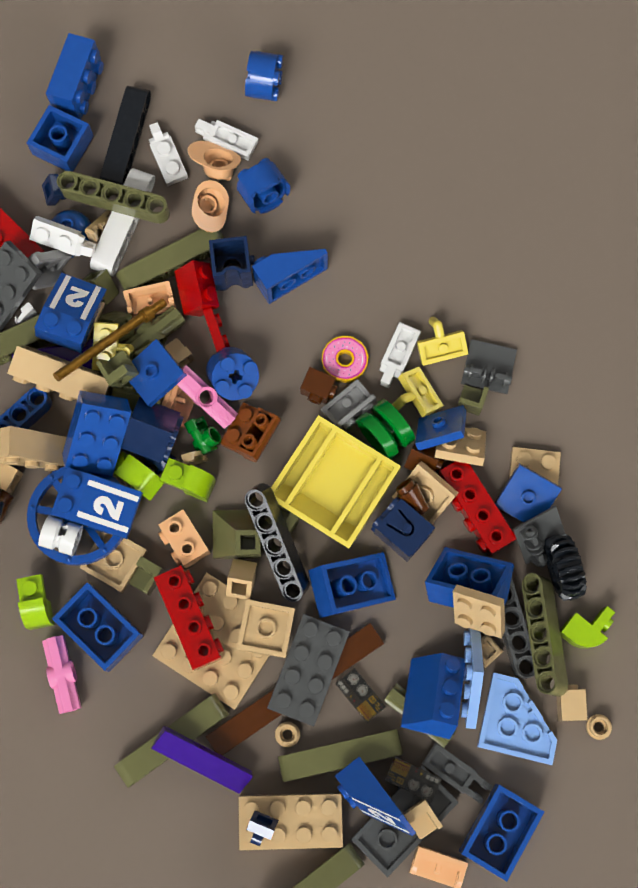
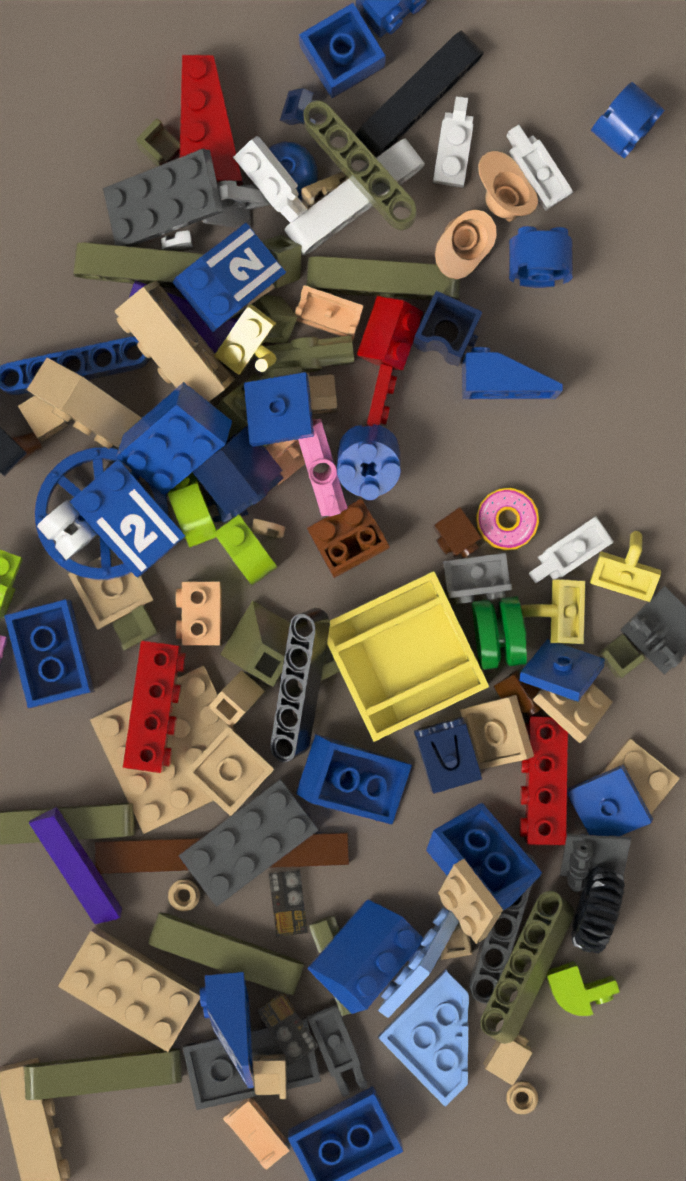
camera: 30 degrees right, 10 degrees up
(118, 369) = (241, 381): olive panel -> none
(144, 315) = (311, 330): pearl gold bar -> none
(204, 438) = (292, 513): green plate -> none
(262, 827) = (94, 980): dark blue tile -> none
(412, 495) = (480, 726): reddish brown cone -> none

